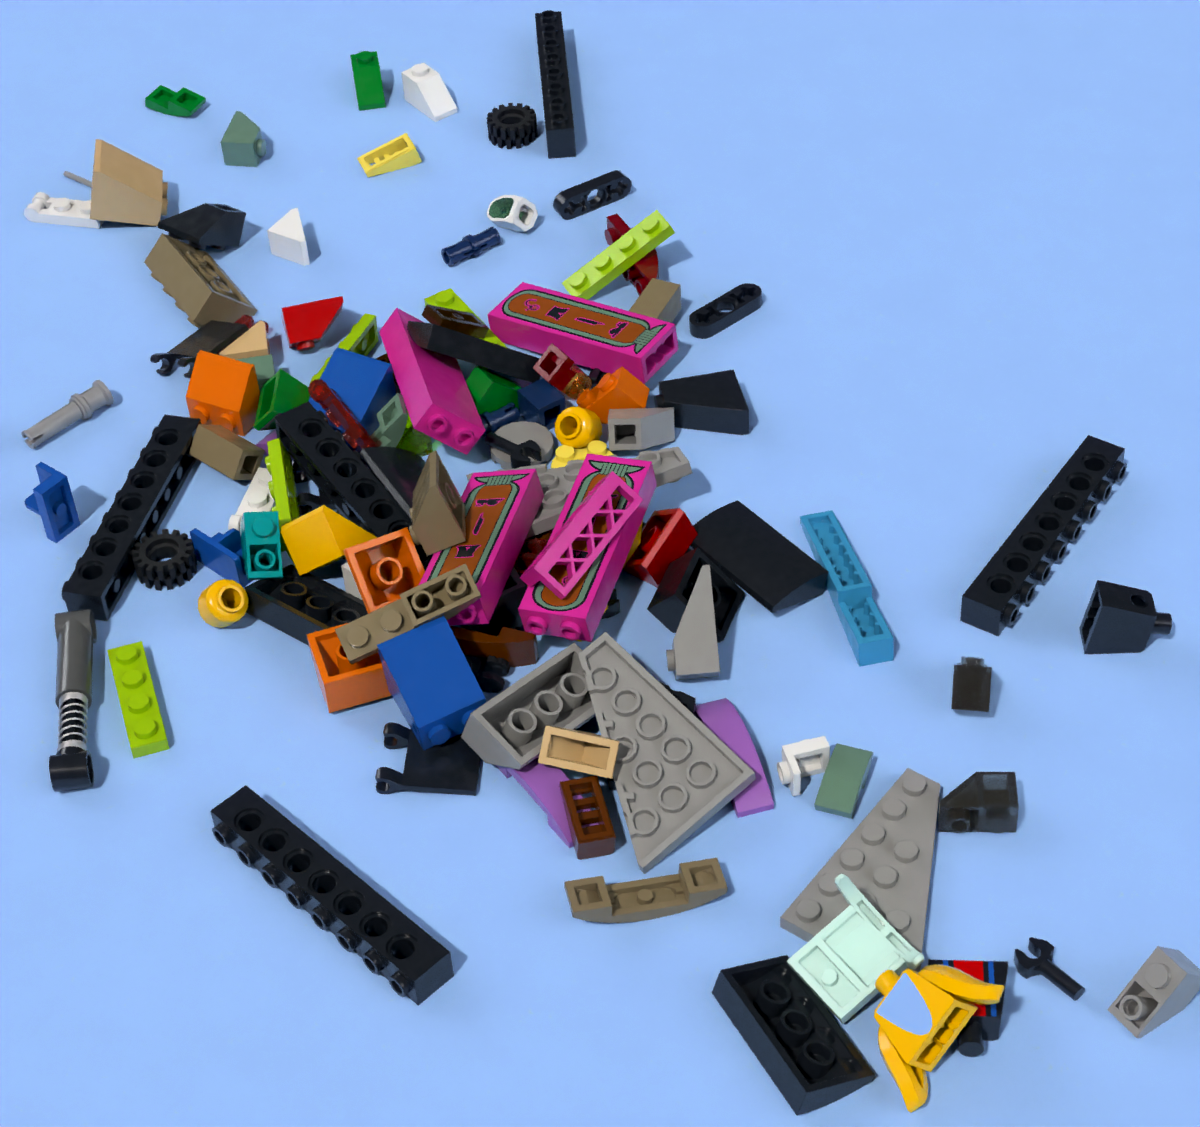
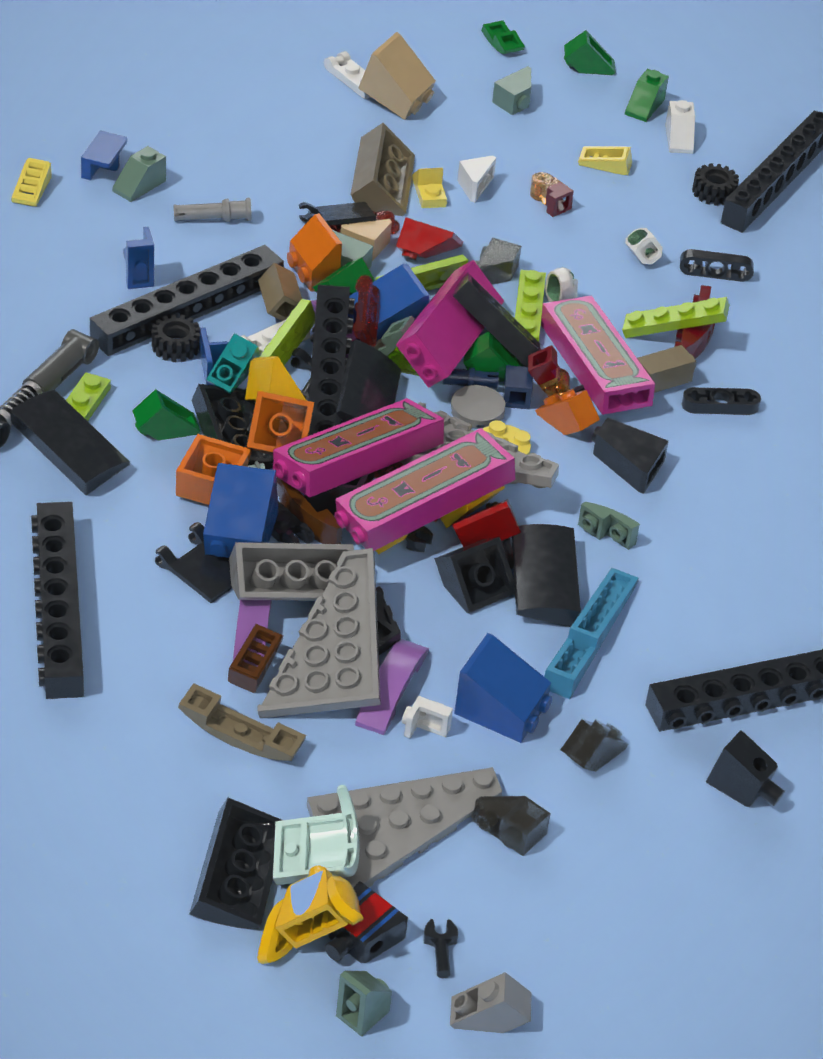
camera: 30 degrees right, 0 degrees up
(169, 728) = (68, 440): none -> black slope
(207, 225) = (424, 135): black slope -> none
(223, 603) = (178, 385): yellow head -> none
(240, 644) = (164, 418): none -> green slope
(255, 274) = (429, 187): none -> light yellow slope
(275, 75) = (588, 56): none -> green slope
(376, 214) = (550, 192): none -> leg
(394, 294) = (499, 260): none -> clear smoke slope
(433, 599) = (283, 456): dark tan slope -> none
(436, 509) = (345, 401): dark tan slope -> none
(455, 320) = (511, 294): dark brown plate -> none
(470, 246) = (592, 252): dark blue pin -> none
(482, 292) = (561, 285): none -> white rock
(518, 453) = (465, 406): black bar -> none
(571, 530) = (413, 467): dark pink fence -> none
(577, 427) = (521, 414): yellow head -> none
(579, 751) = (283, 611): tan slope -> none
(640, 428) = (563, 441): light grey slope -> none
(695, 640) = (441, 592): light grey slope -> none
(748, 478) = (605, 521): none -> sand green slope
(843, 780) = (445, 743): sand green slope -> none
(845, 691) = (501, 691): none -> blue slope
(1053, 1075) = (362, 1000): none -> sand green slope

